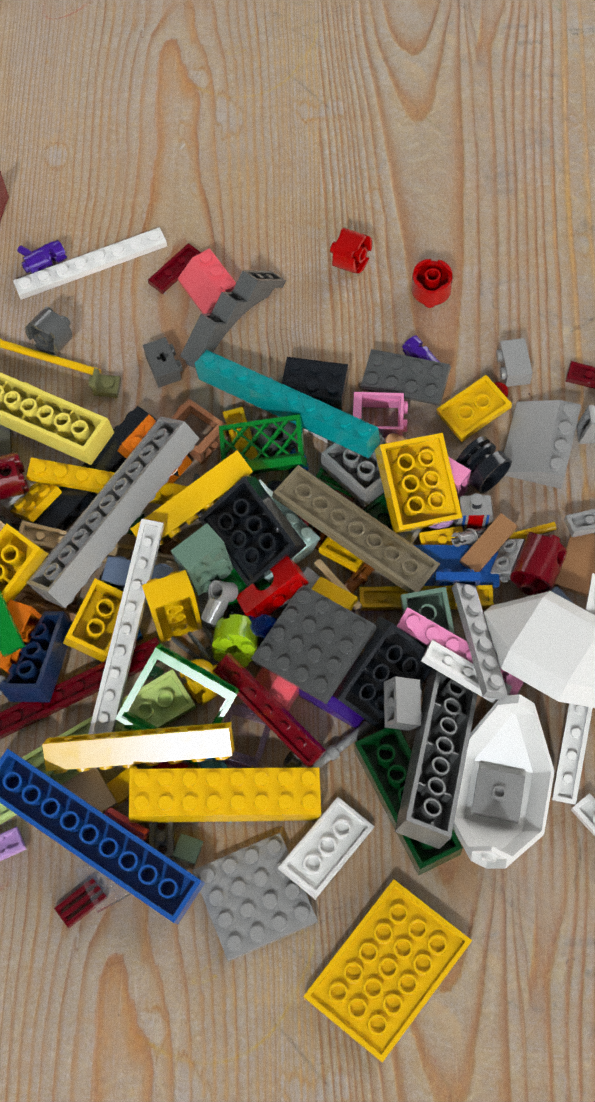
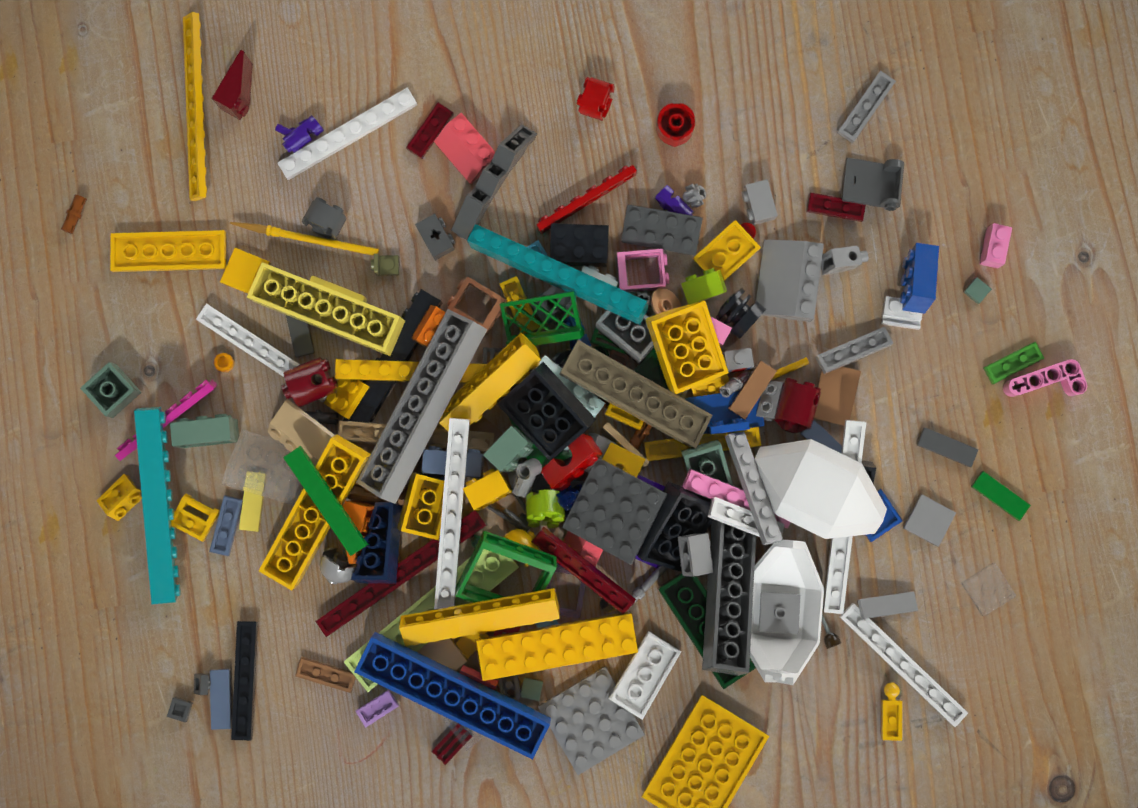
camera: 10 degrees left, 20 degrees up
(331, 342) = (592, 194): none -> red plate
(444, 349) = (694, 195): none -> light grey gear
(453, 430) = (703, 287): none -> lime brick
(558, 834) = (830, 639): none -> dark brown hinge

